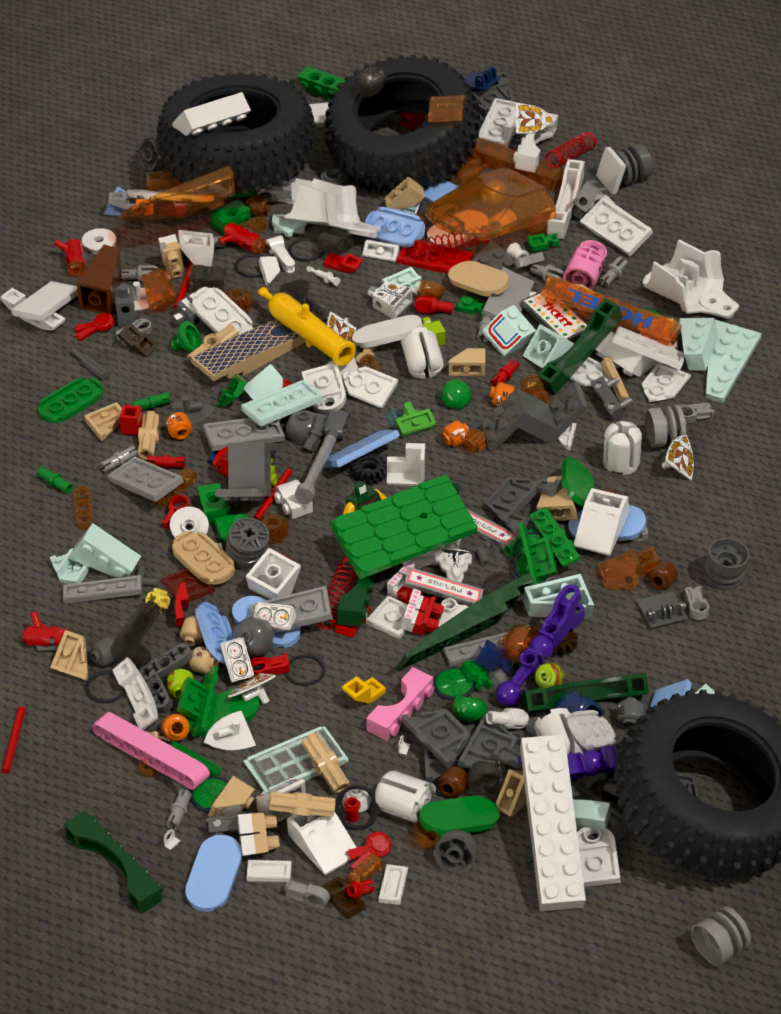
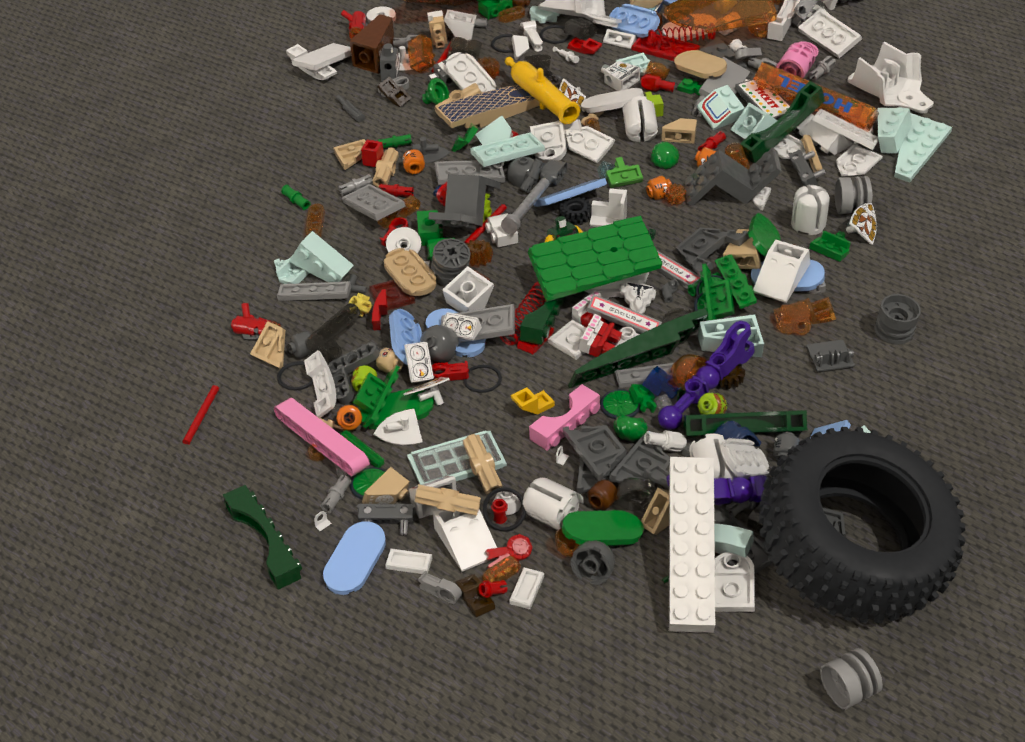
camera: 10 degrees right, 0 degrees up
(70, 400) = (326, 135): green tile -> none
(100, 323) = (367, 77): red piece -> none
(191, 631) = (382, 334): tan head -> none
(243, 237) = (502, 20): red piece -> none
(259, 842) = (402, 532): hips -> none
(541, 242) = (761, 41): green plate -> none
(649, 485) = (831, 245): none -> green slope
(663, 575) = (835, 324): reddish brown head -> none
(695, 601) = (863, 351): light grey piece -> none
(697, 412) = (885, 187): light grey piece -> none

